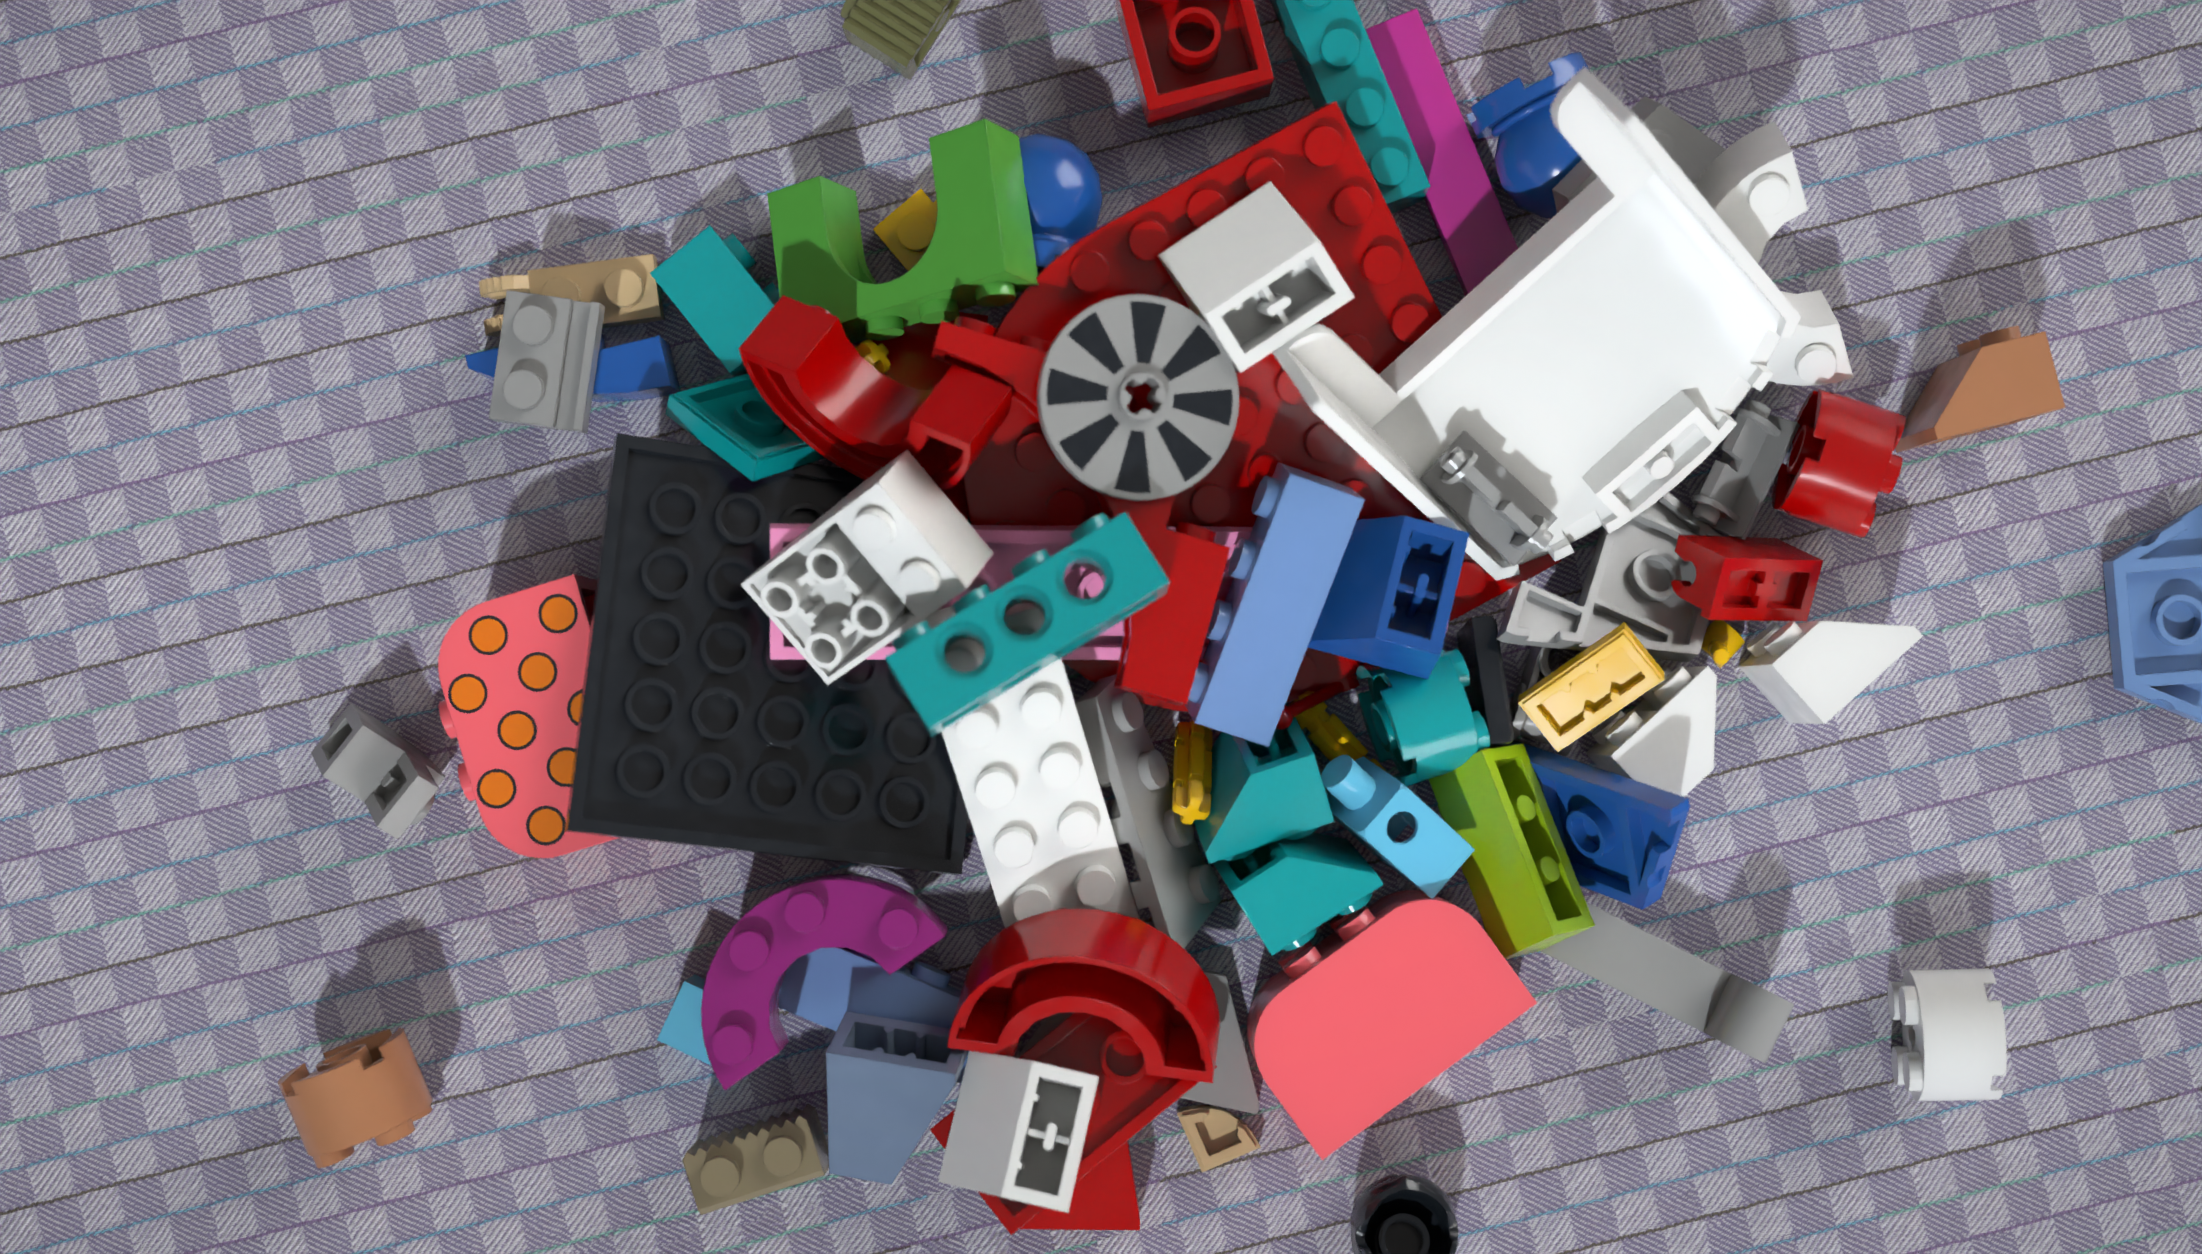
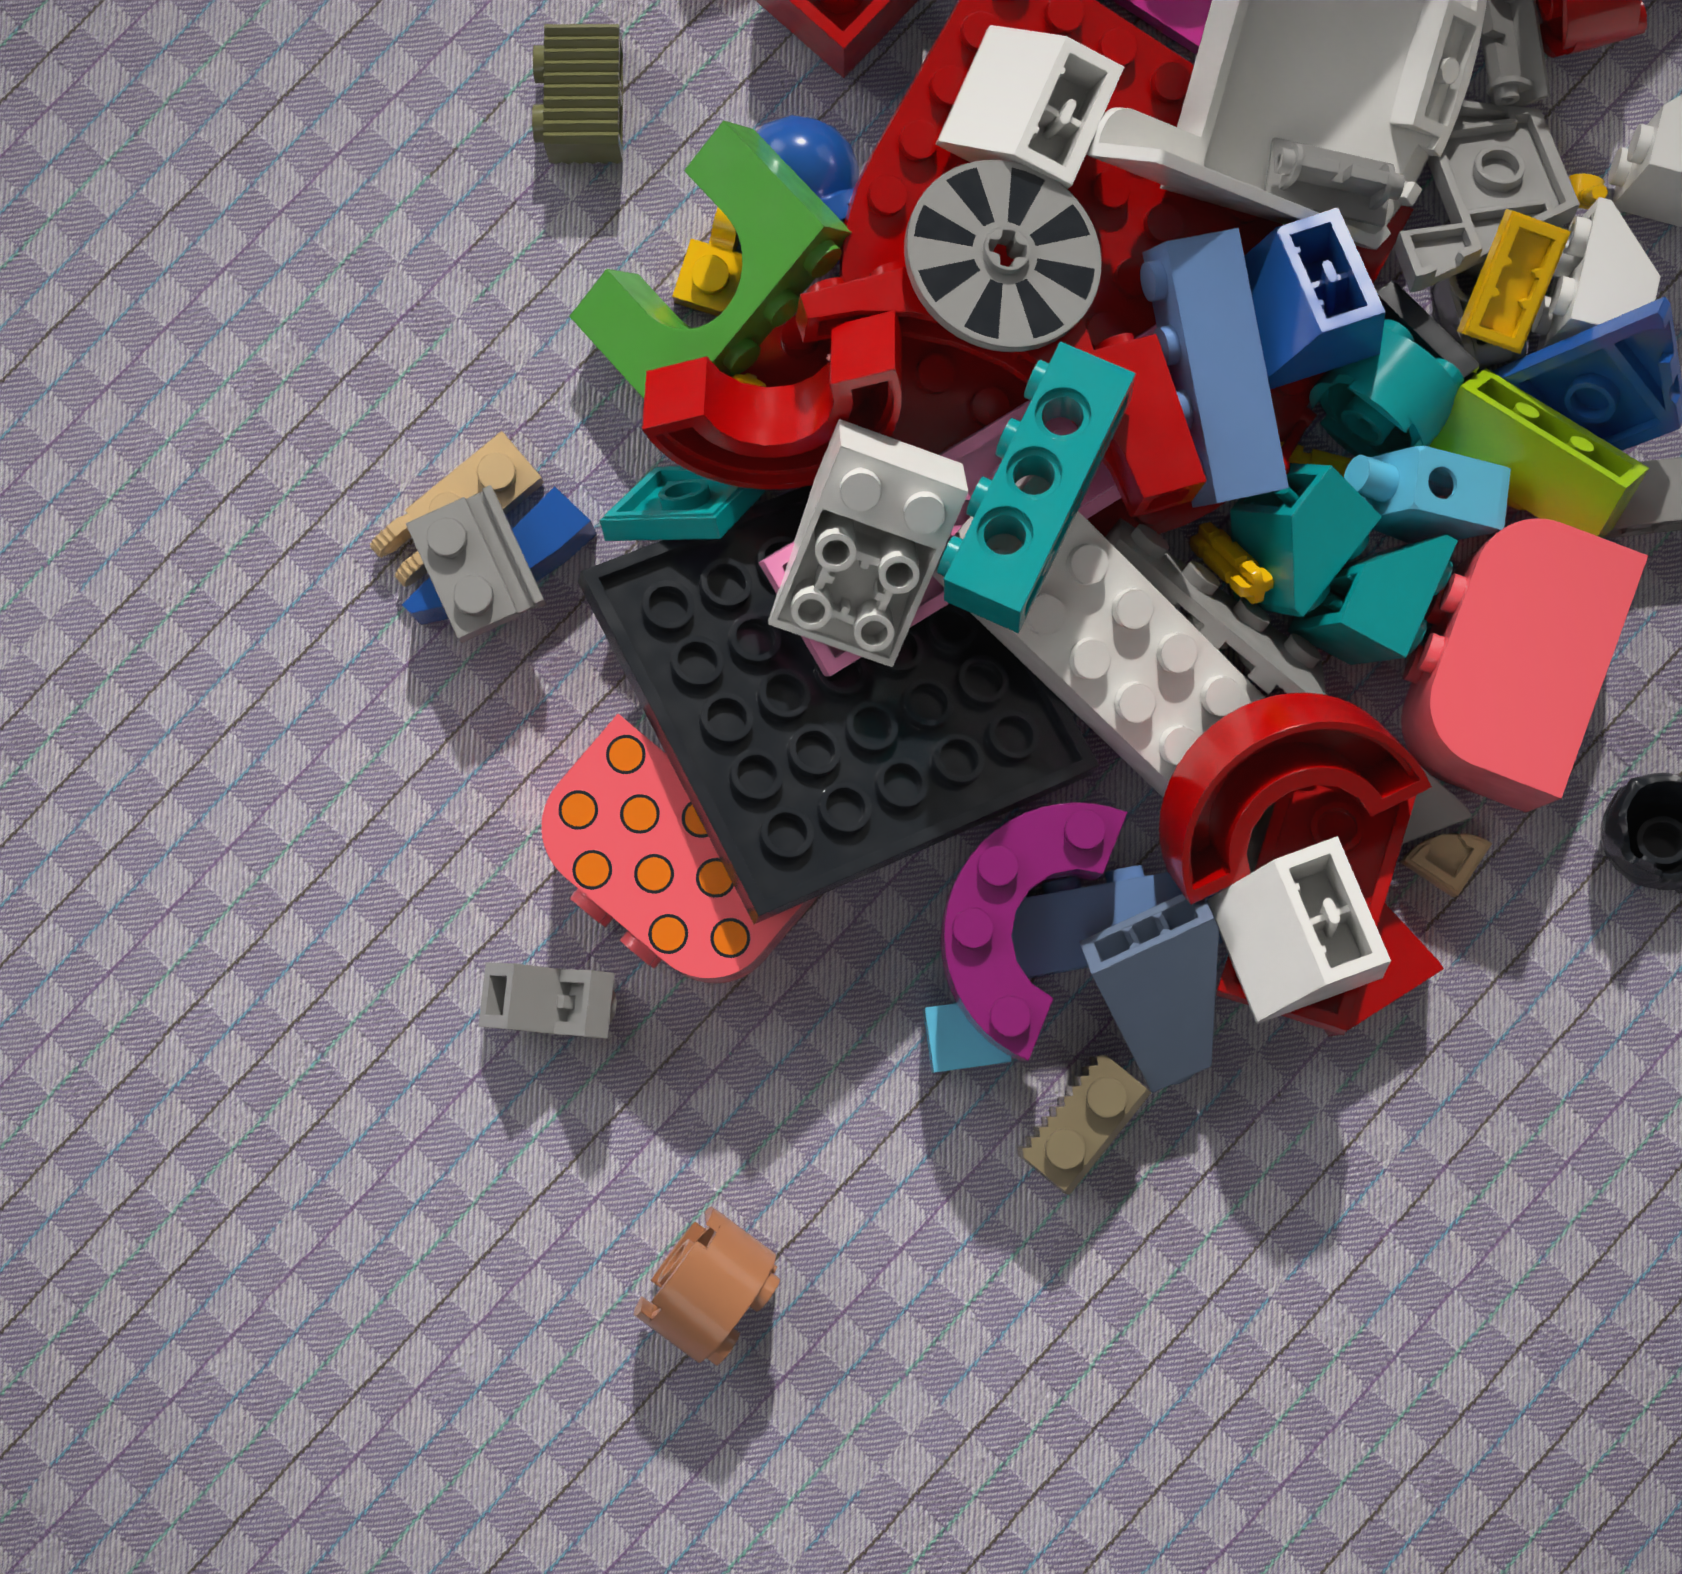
camera: 35 degrees left, 5 degrees down
(717, 293) = (585, 429): teal brick -> none
(1748, 578) = (1577, 120): red hinge -> none

